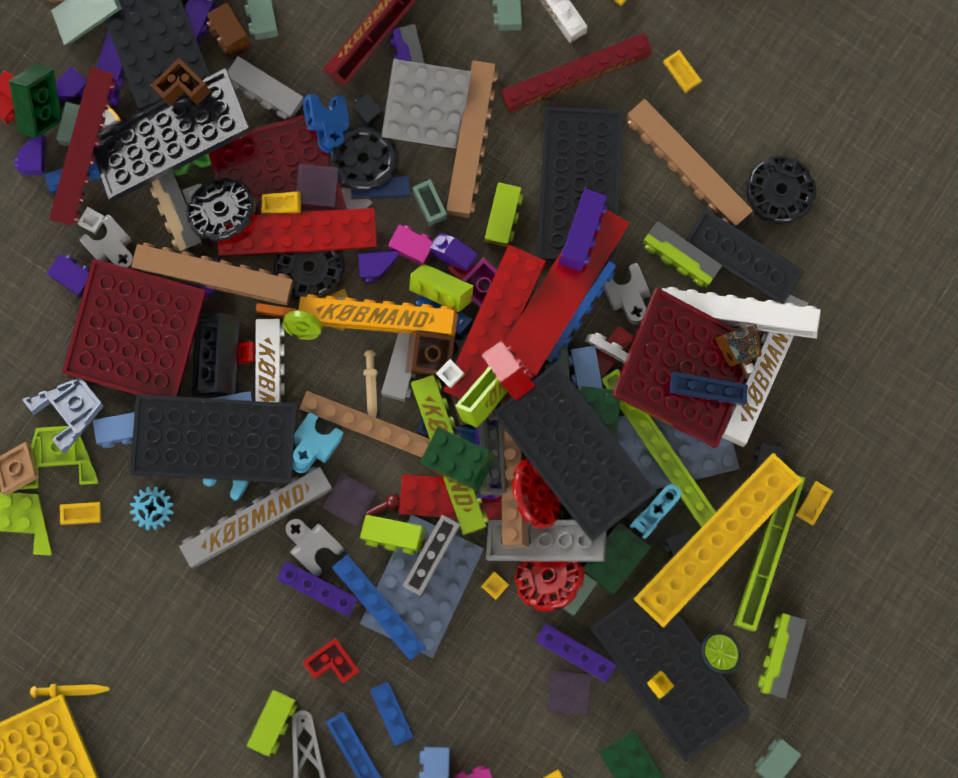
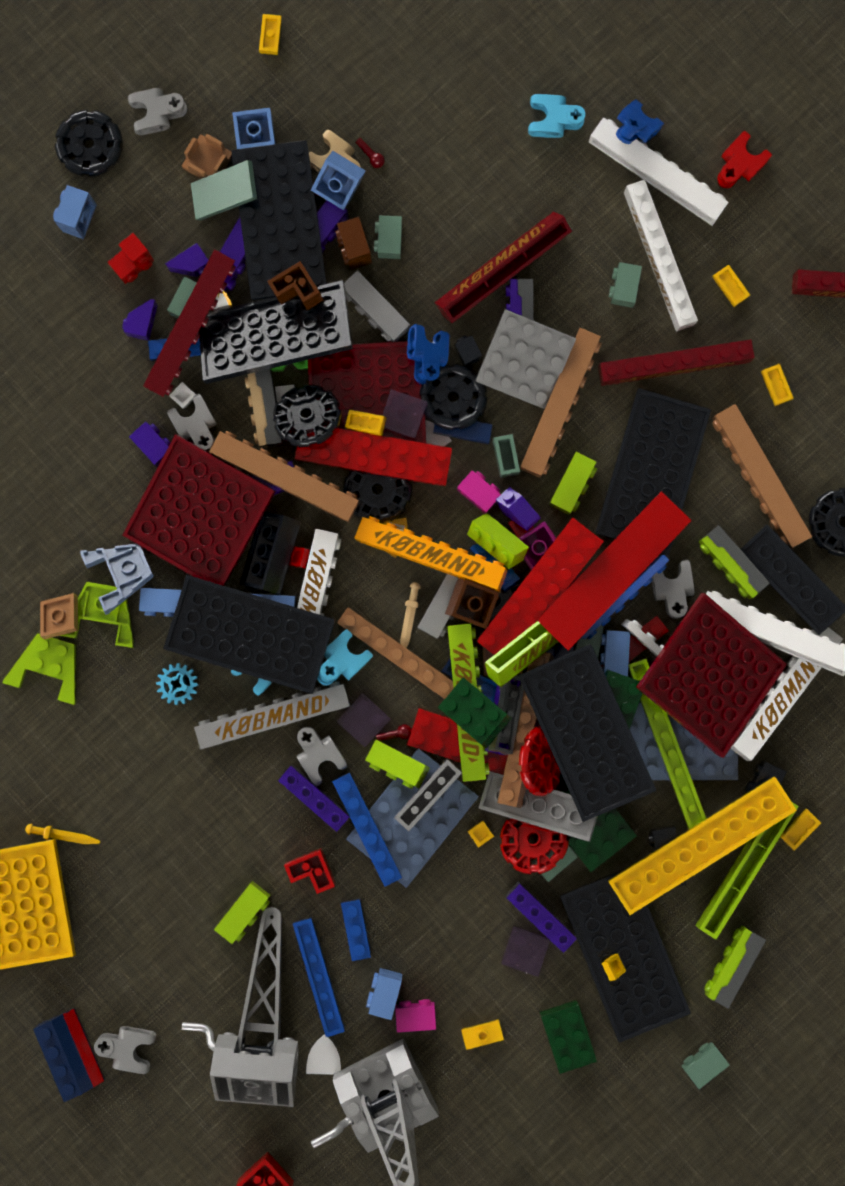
camera: 15 degrees right, 5 degrees up
(35, 100) = (155, 269): dark green brick -> none
(80, 513) = (110, 672): yellow plate -> none
(274, 311) = (338, 525): orange tile -> none
(302, 324) = (358, 543): lime tile -> none
(376, 265) = (440, 503): dark purple slope -> none
(450, 373) = (487, 628): white plate -> none
(510, 372) = (544, 642): brick -> none
(582, 230) = (646, 517): dark purple brick -> none
(649, 518) = (641, 807): medium azure piece -> none
(708, 388) = (729, 701): dark blue plate -> none
(720, 652) = (677, 949): lime wheel -> none
(741, 347) = (769, 668): torso -> none

